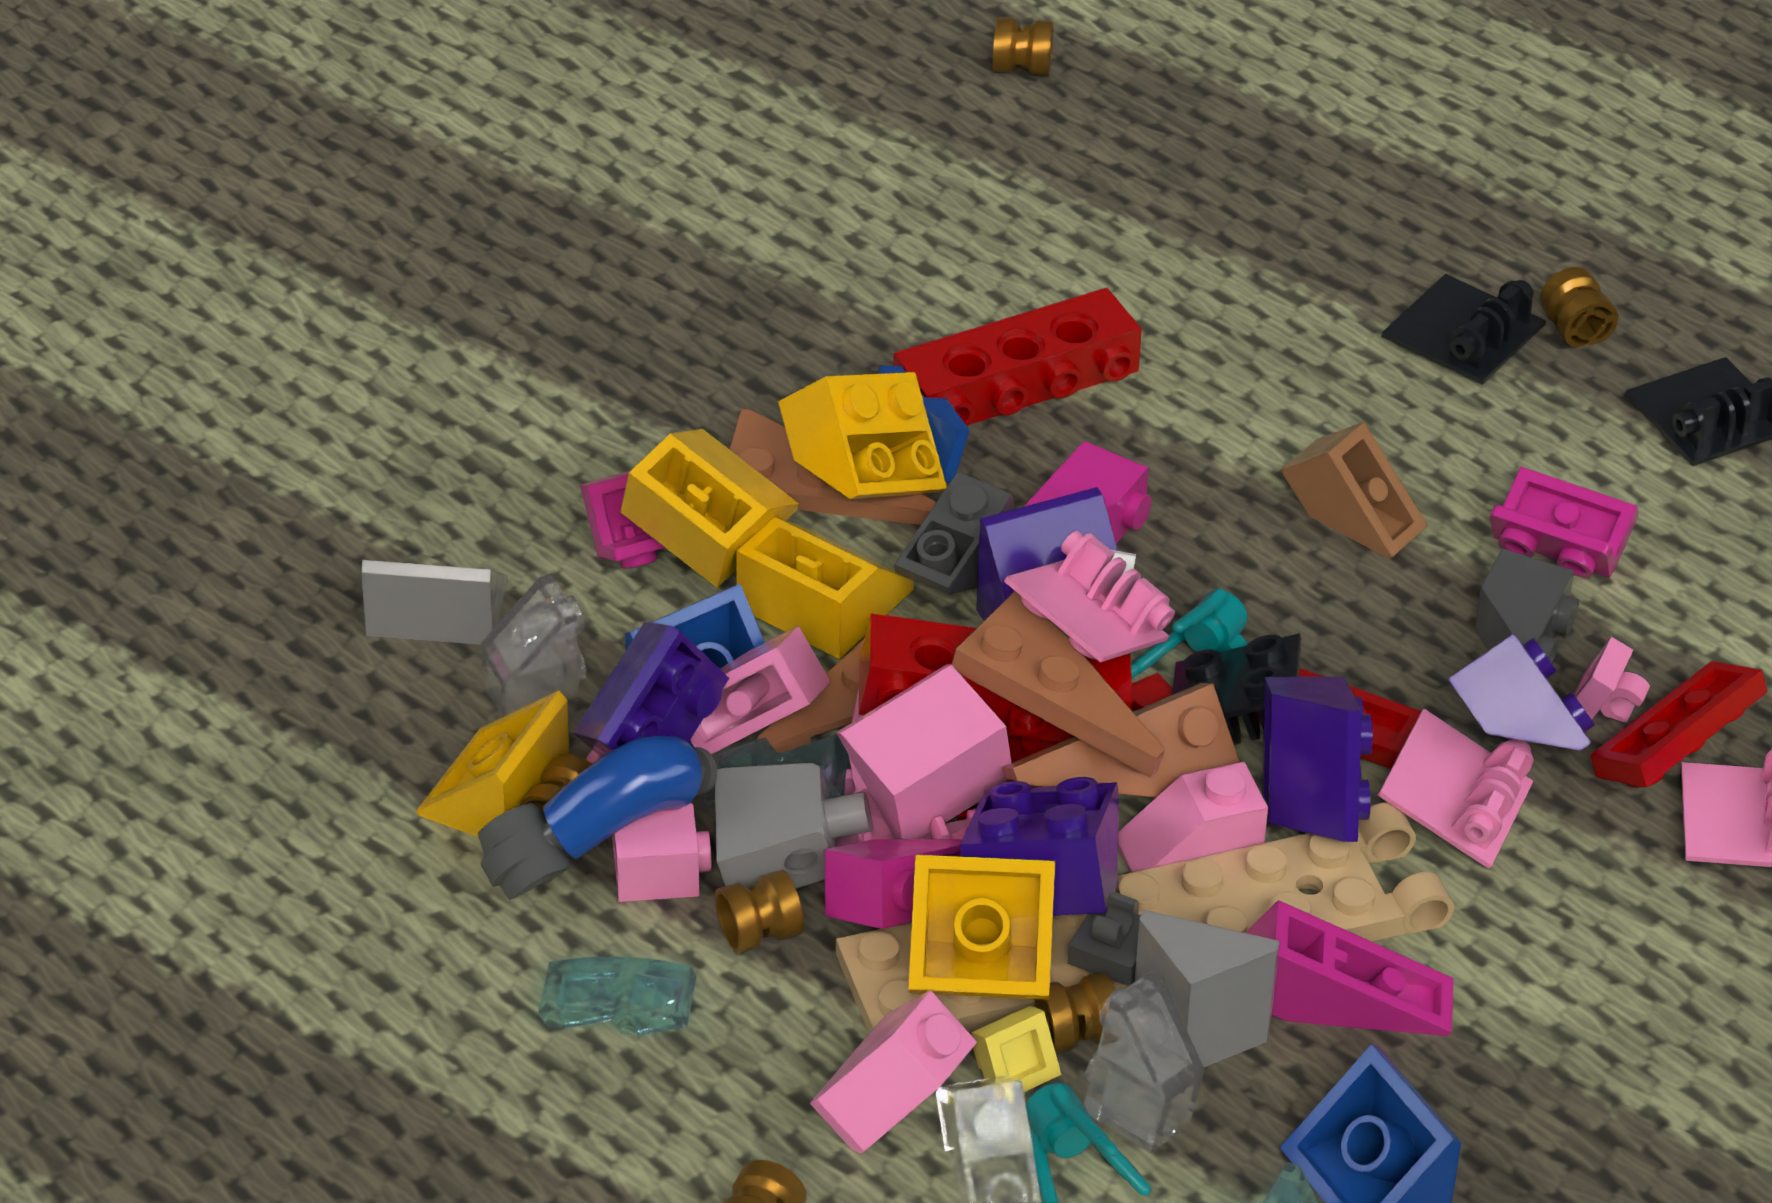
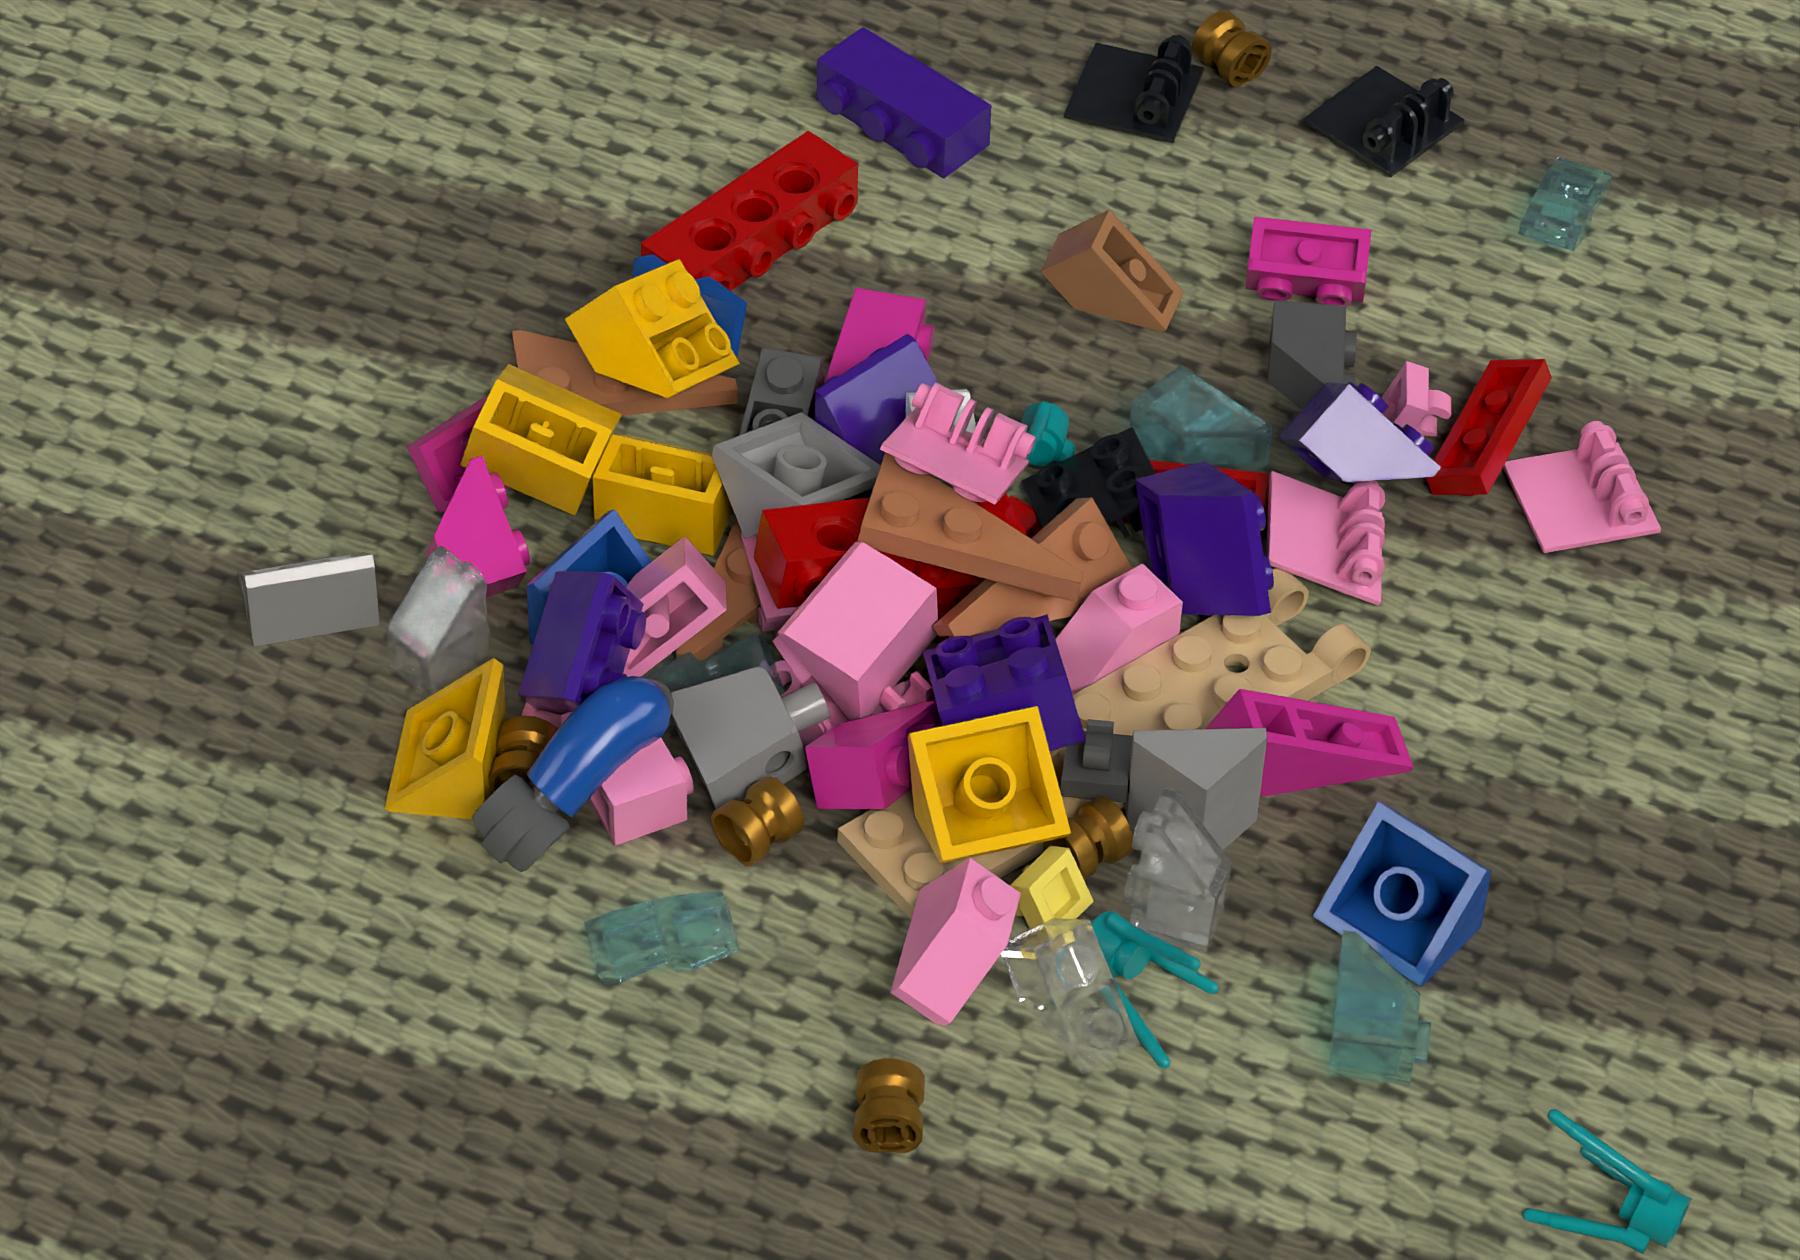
camera: 20 degrees left, 5 degrees up
(606, 580) = (479, 532): none -> dark pink slope
(928, 582) = (788, 467): none -> light grey slope
(1220, 286) = (903, 102): none -> dark purple brick
(1373, 650) = (1194, 422): none -> clear light blue slope

